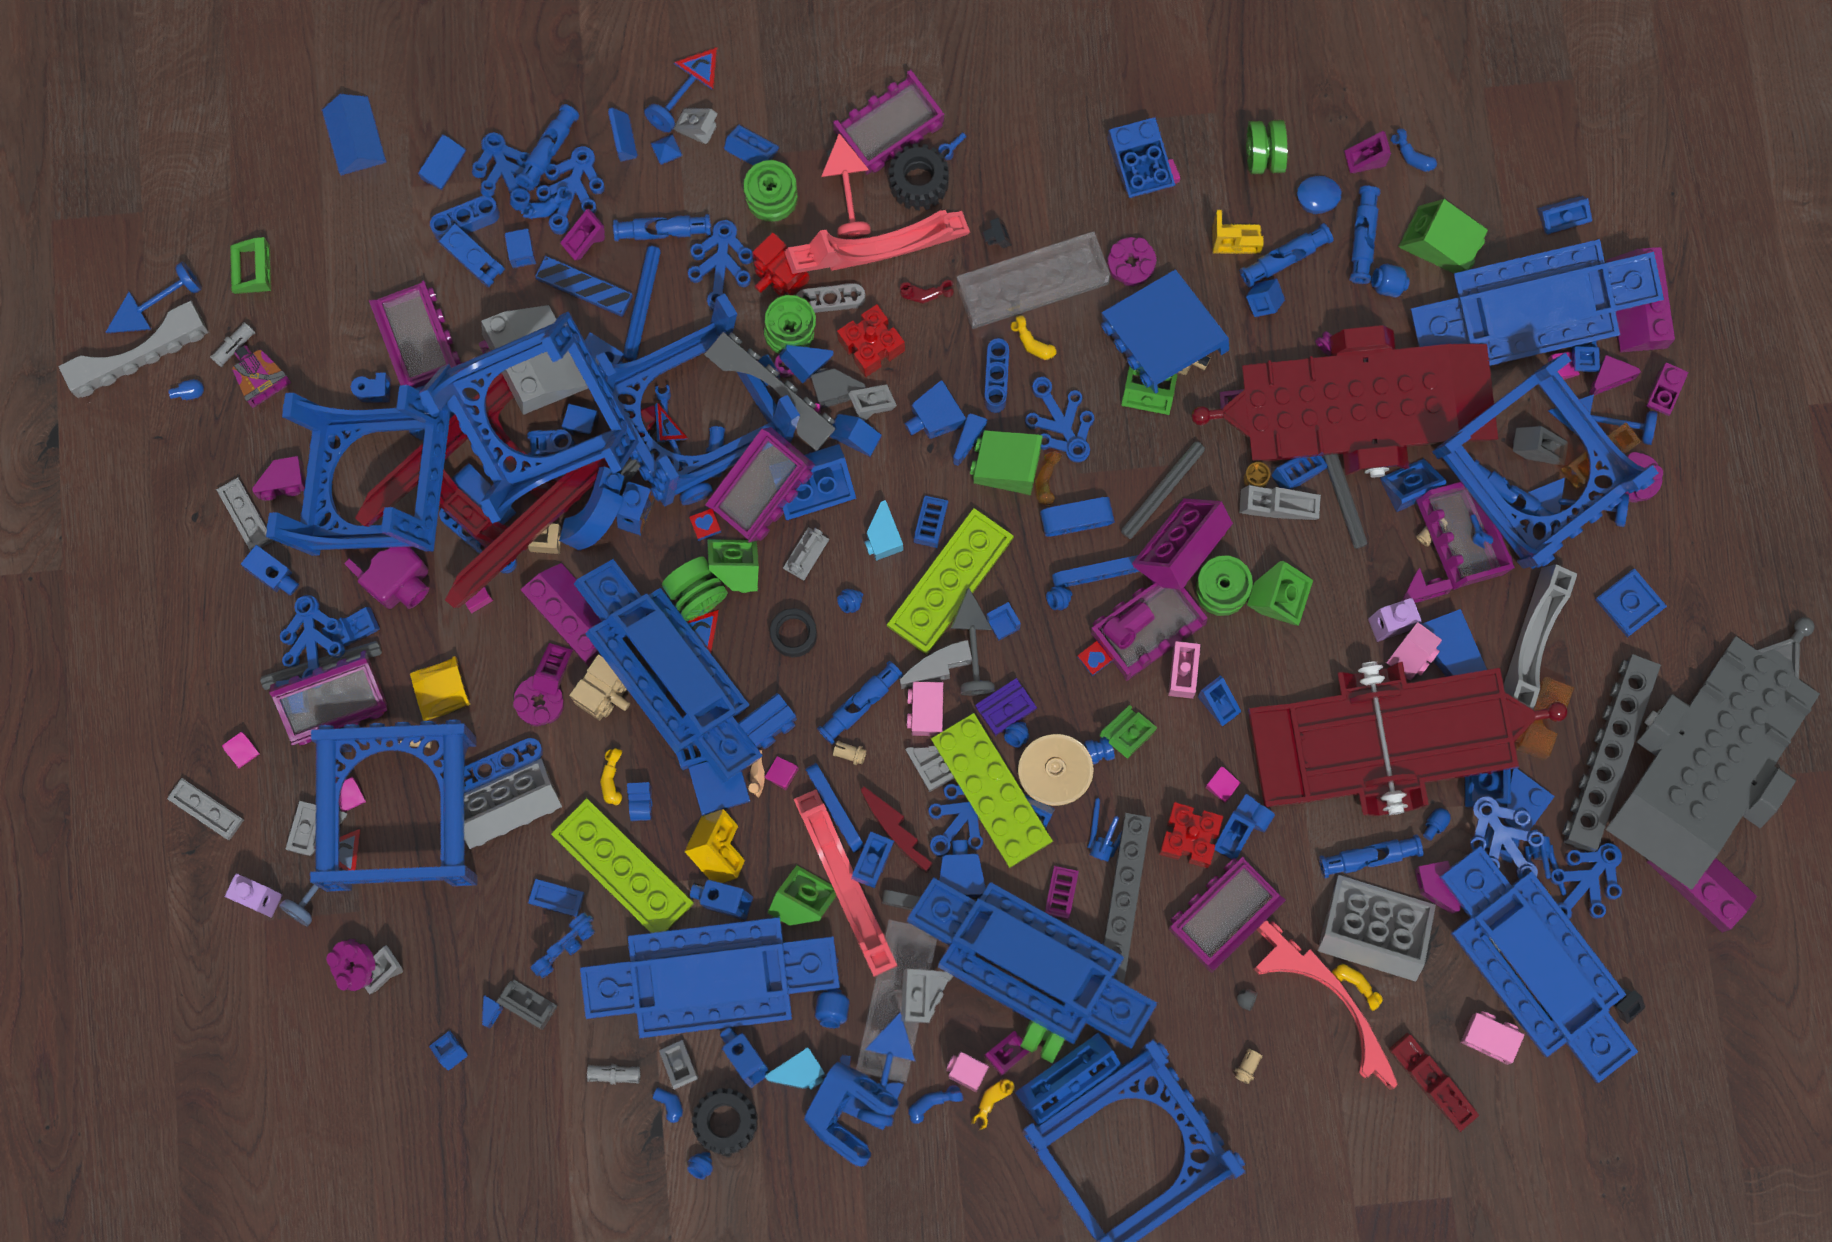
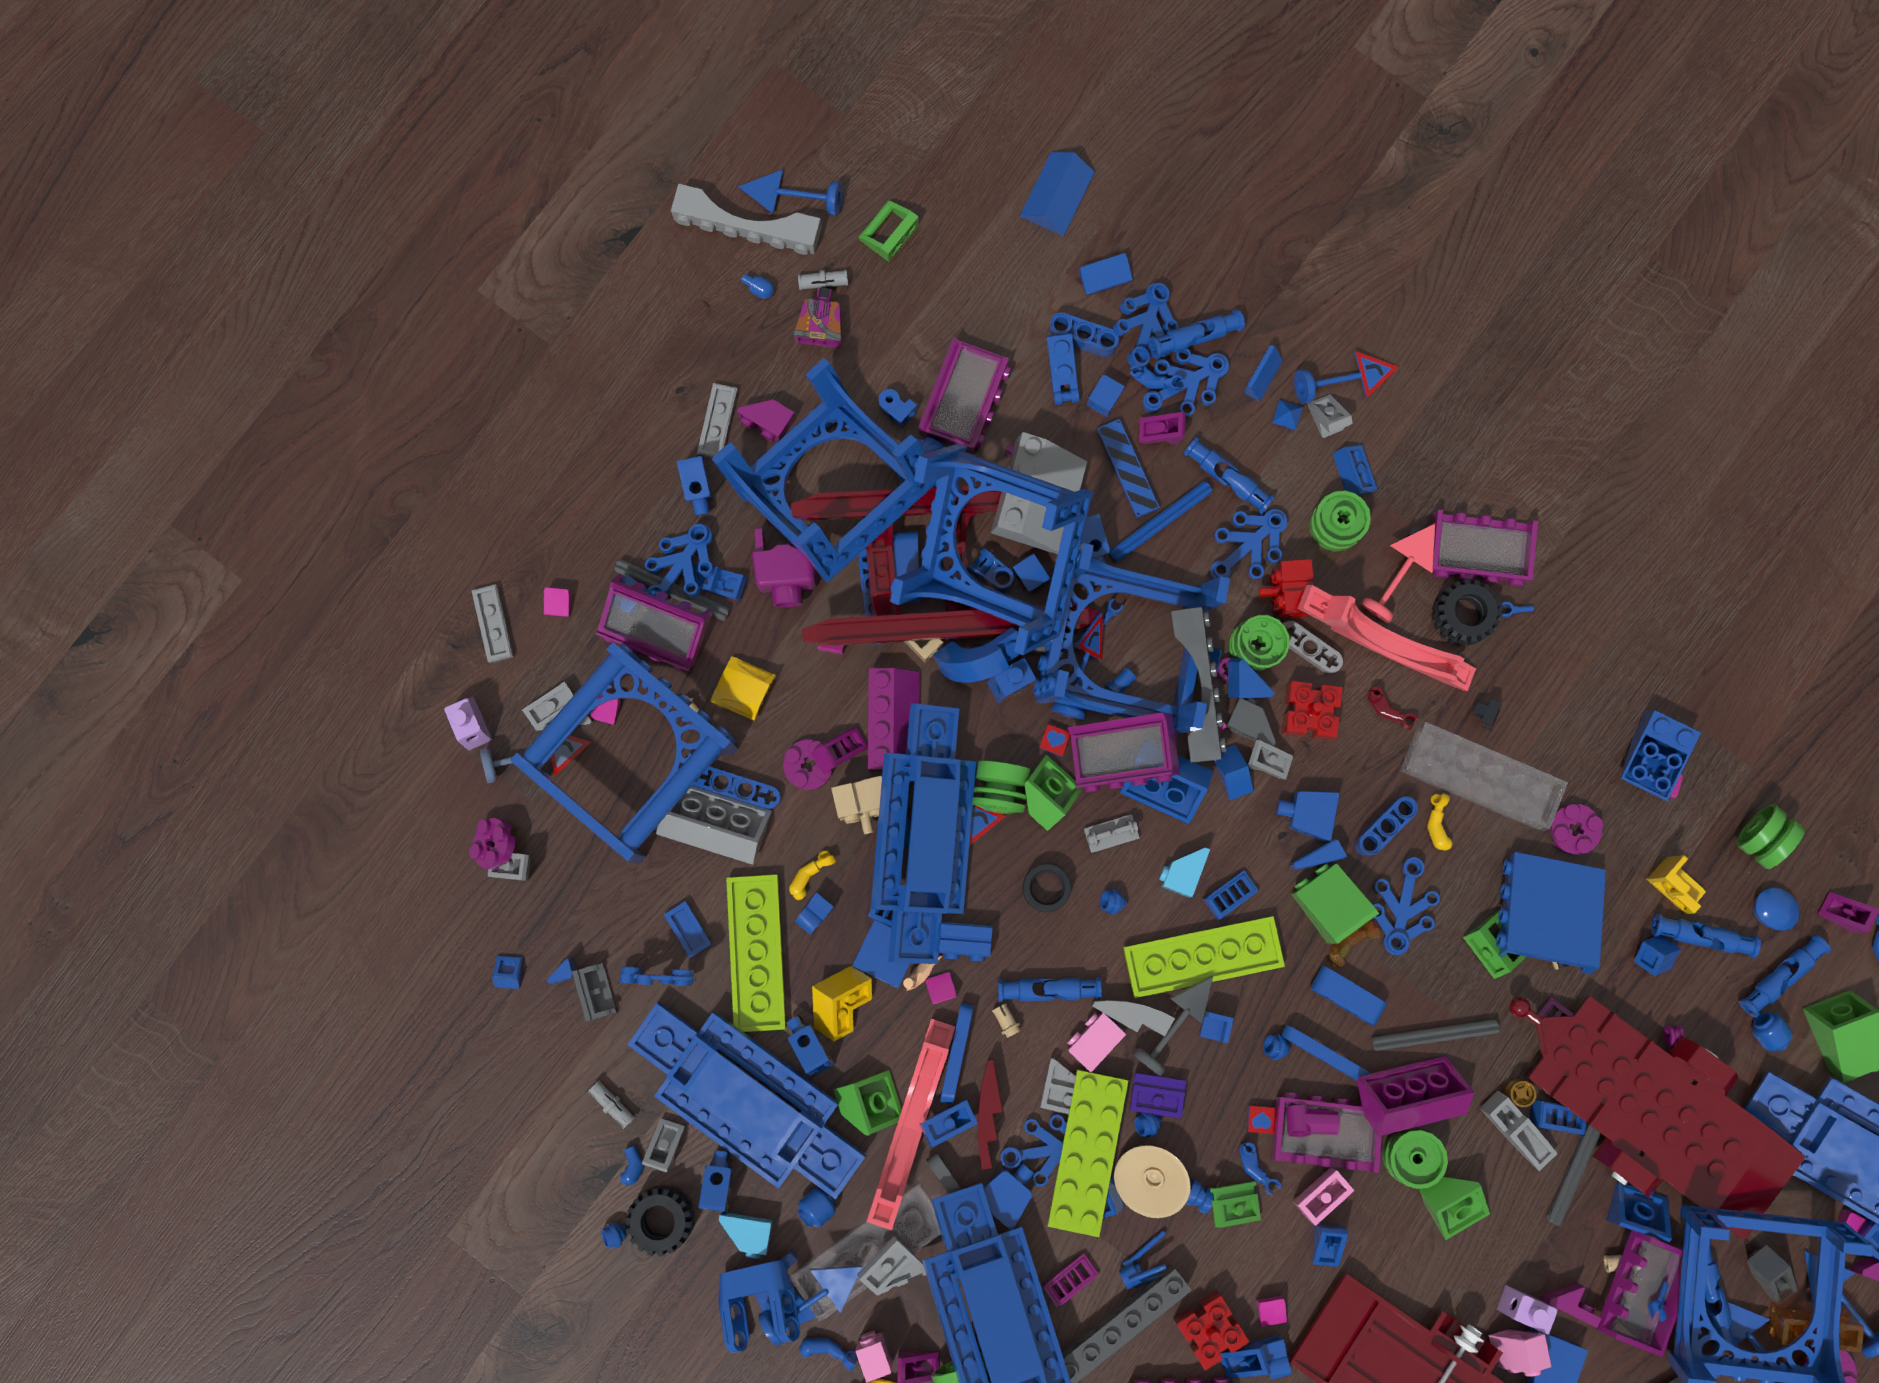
camera: 40 degrees right, 5 degrees up
(1118, 697) = (1251, 1167): none -> blue arm

